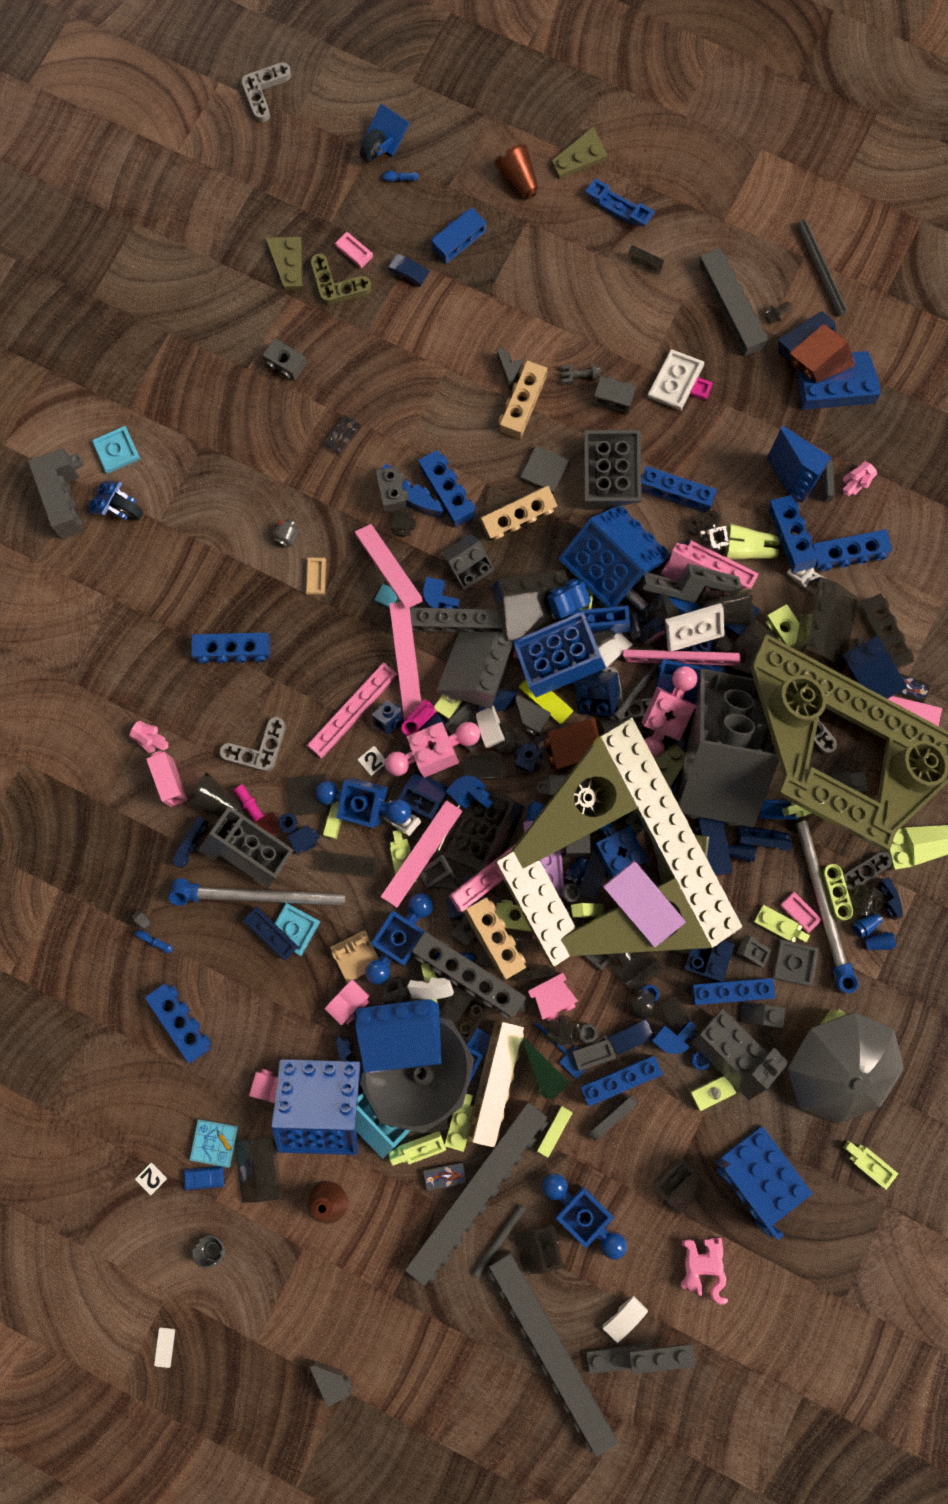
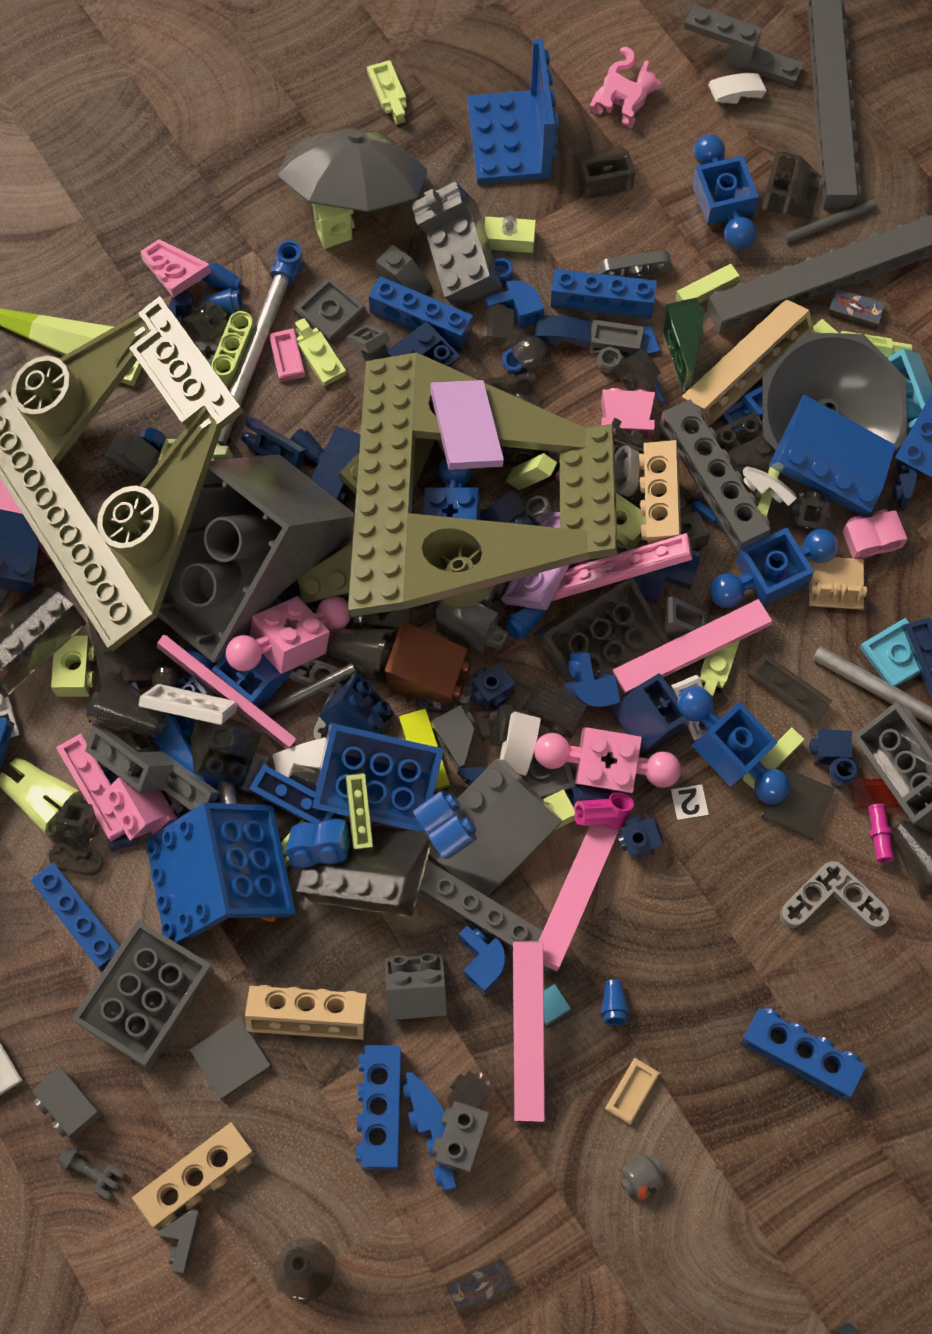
camera: 155 degrees left, 10 degrees down
(351, 616) = (614, 1004): none -> blue cone
(352, 710) = (680, 879): bright pink tile -> none
(437, 389) = (313, 1277): none -> clear smoke cone
(501, 644) = (445, 824): none -> blue brick
(529, 948) = (627, 470): none -> light grey beam
(555, 624) = (359, 811): none -> yellowish green piece
(915, 926) = (174, 267): none -> bright pink wing

